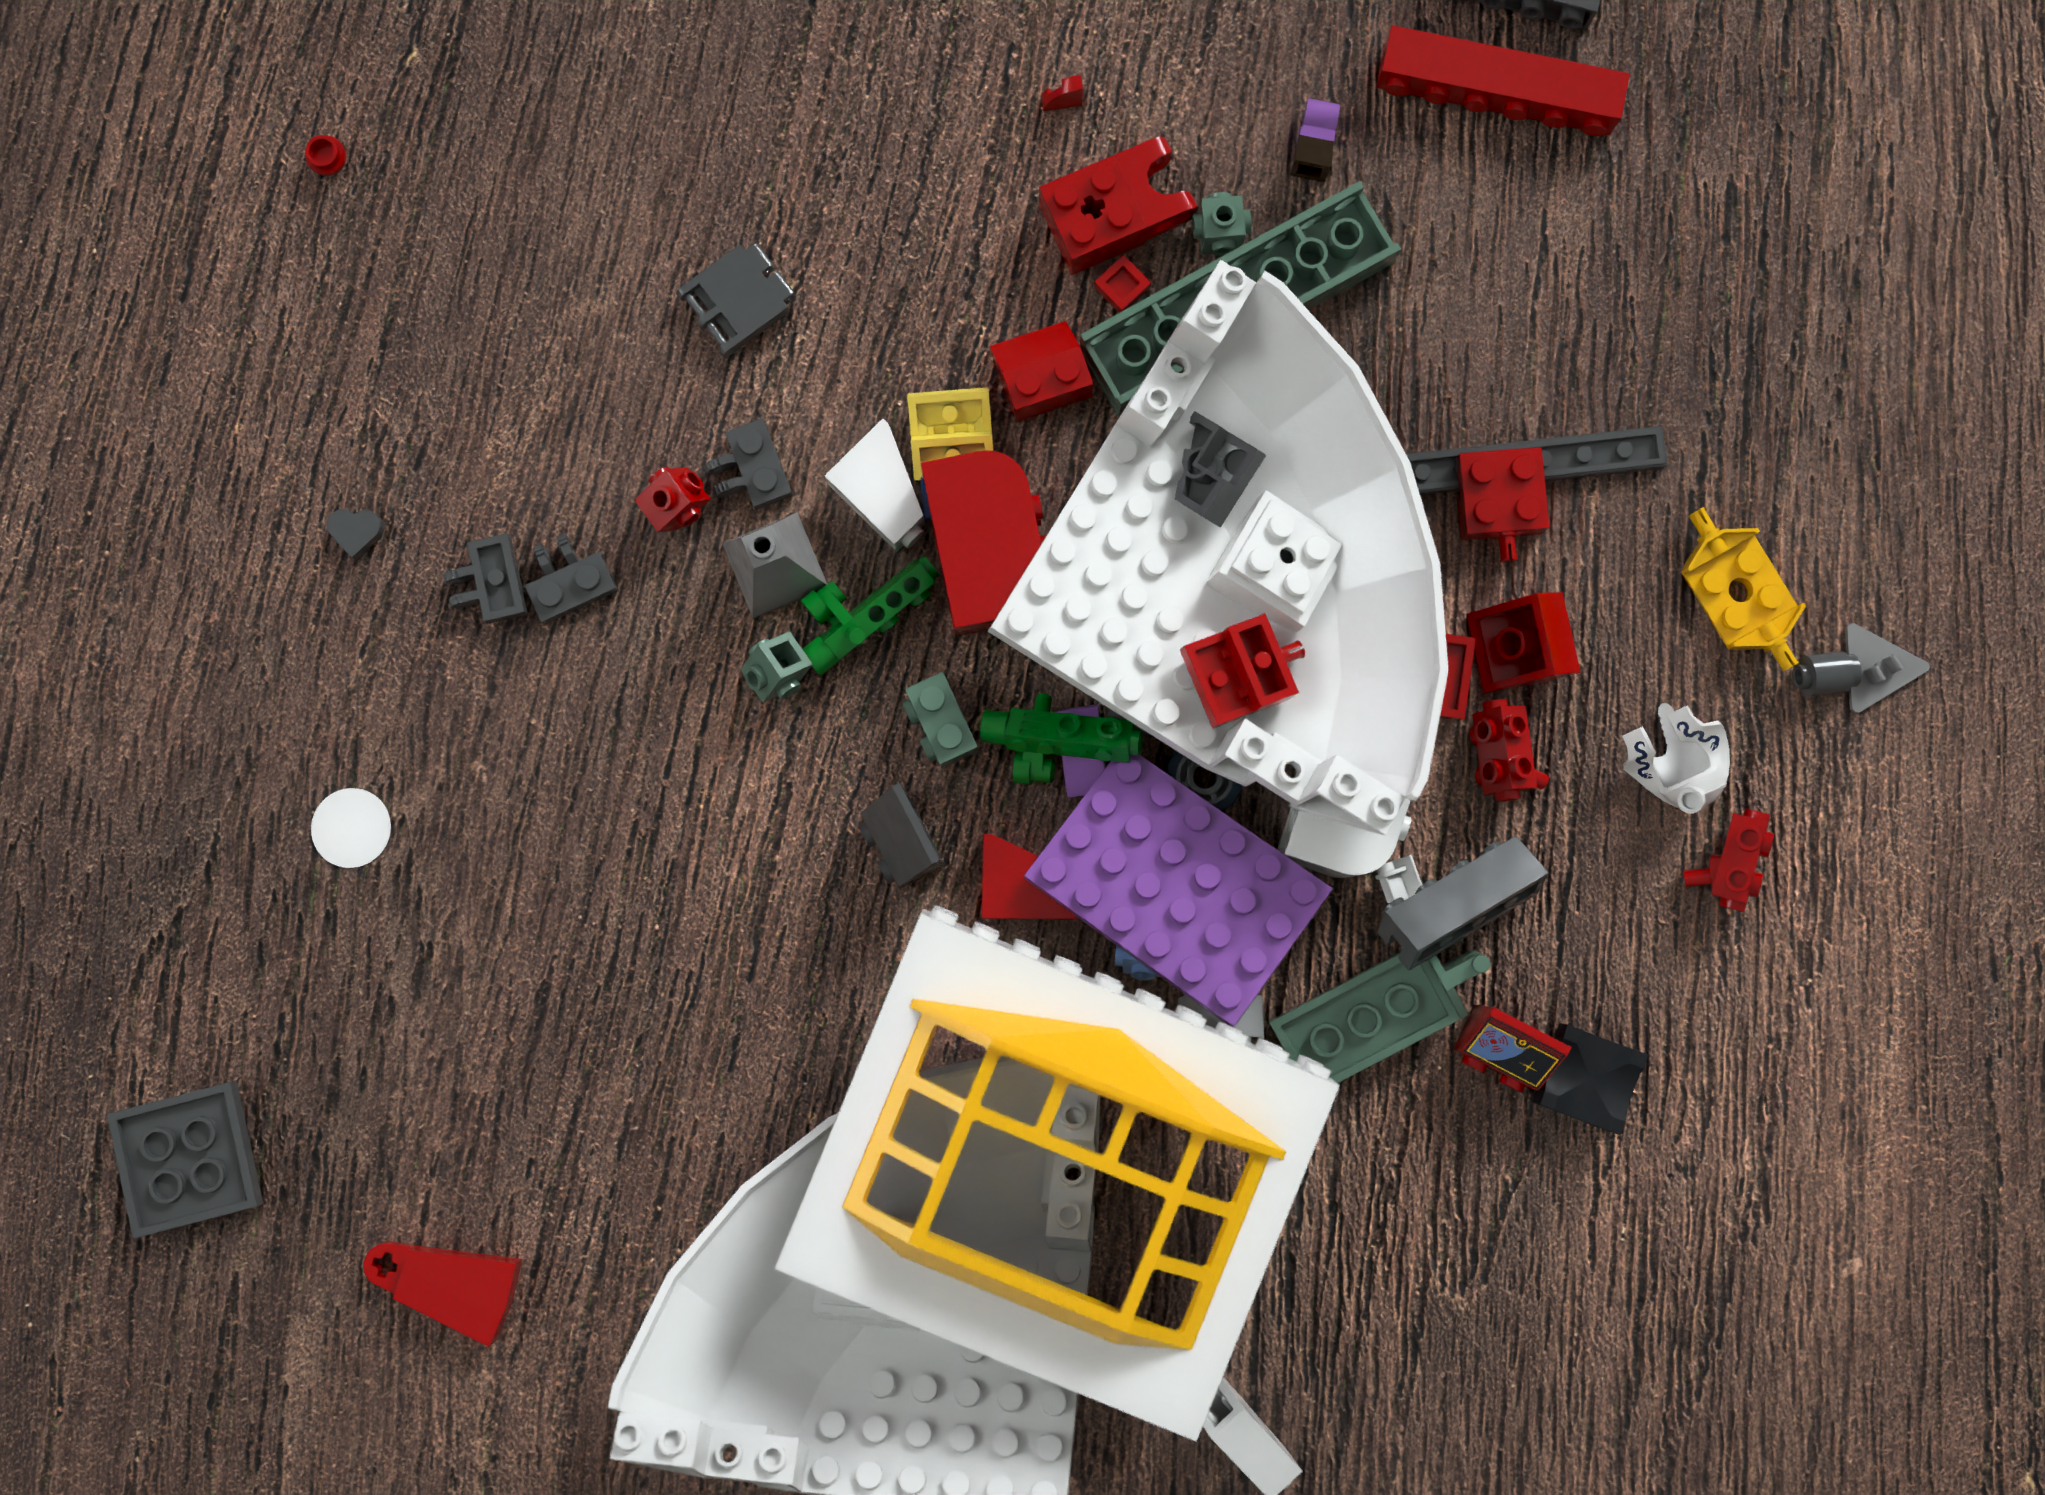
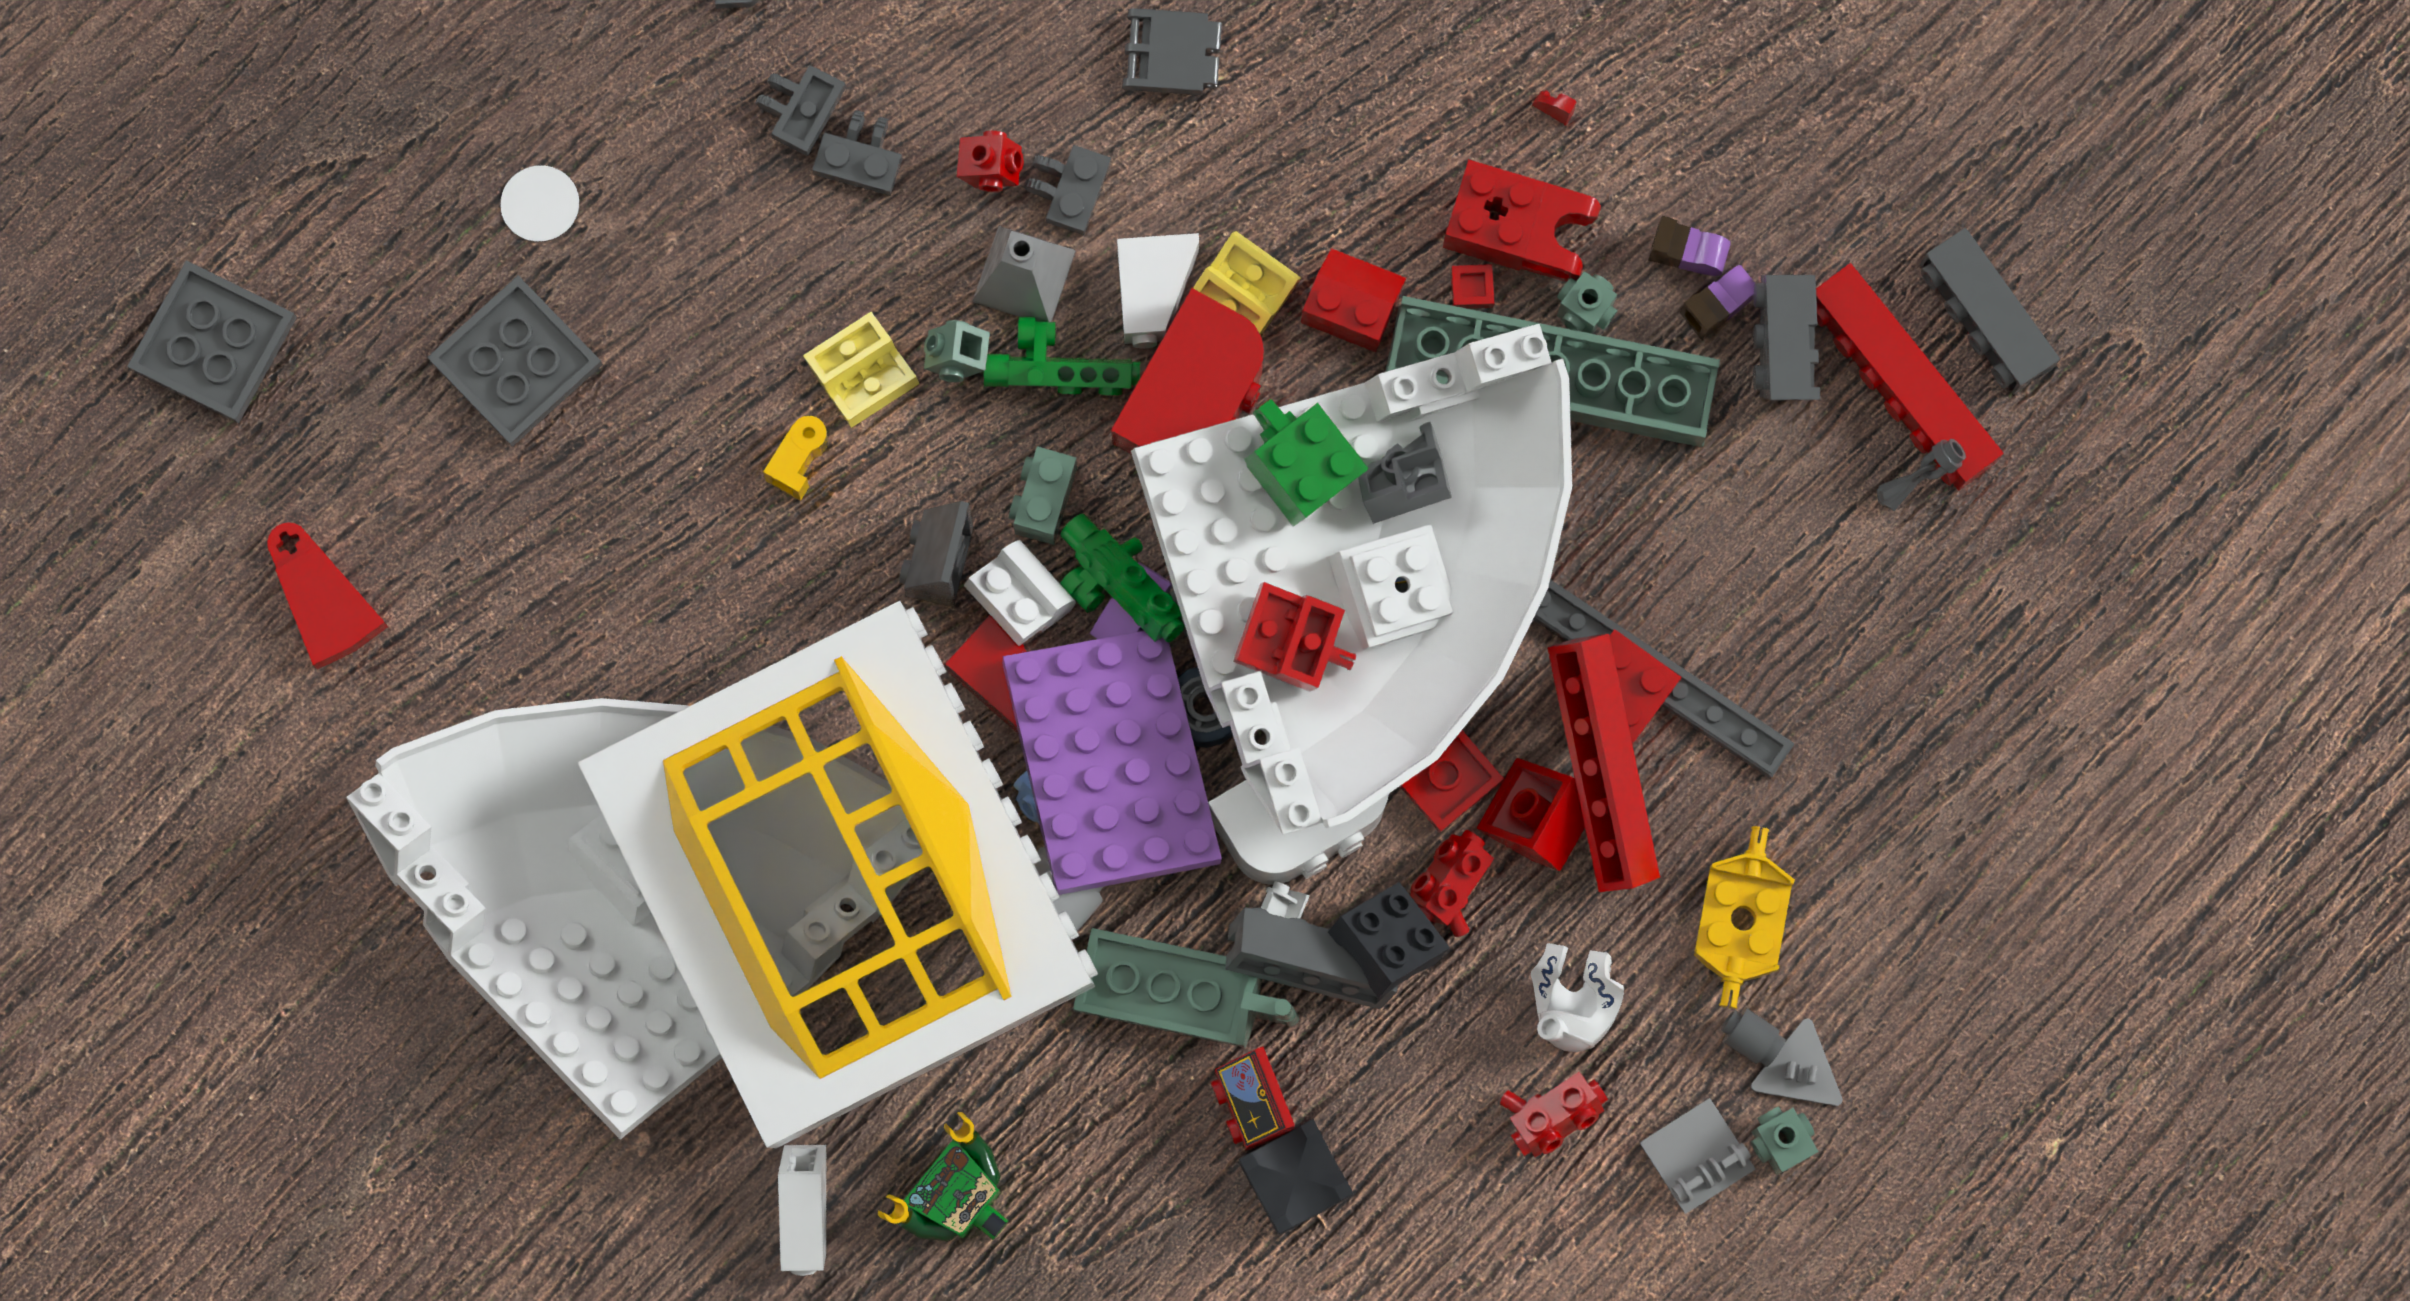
camera: 35 degrees right, 5 degrees down
(438, 969) = (515, 361): none -> dark grey plate
(714, 744) = (861, 369): none -> light yellow slope
(721, 854) = (802, 444): none -> yellow leg
(990, 814) = (1020, 593): none -> white brick
(1130, 524) = (1302, 460): none -> green hinge
(1256, 119) = (1689, 248): none -> leg
(1345, 1321) = (953, 1192): none -> torso
(1396, 123) = (1786, 337): none -> dark grey wedge
(1509, 837) = (1389, 939): none -> black brick
(1548, 561) = (1603, 763): none -> red brick
(1570, 172) = (1948, 455): none -> dark grey piece
(1863, 798) = (1697, 1156): none -> light grey hinge
(1922, 731) = (1798, 1134): none -> sand green brick

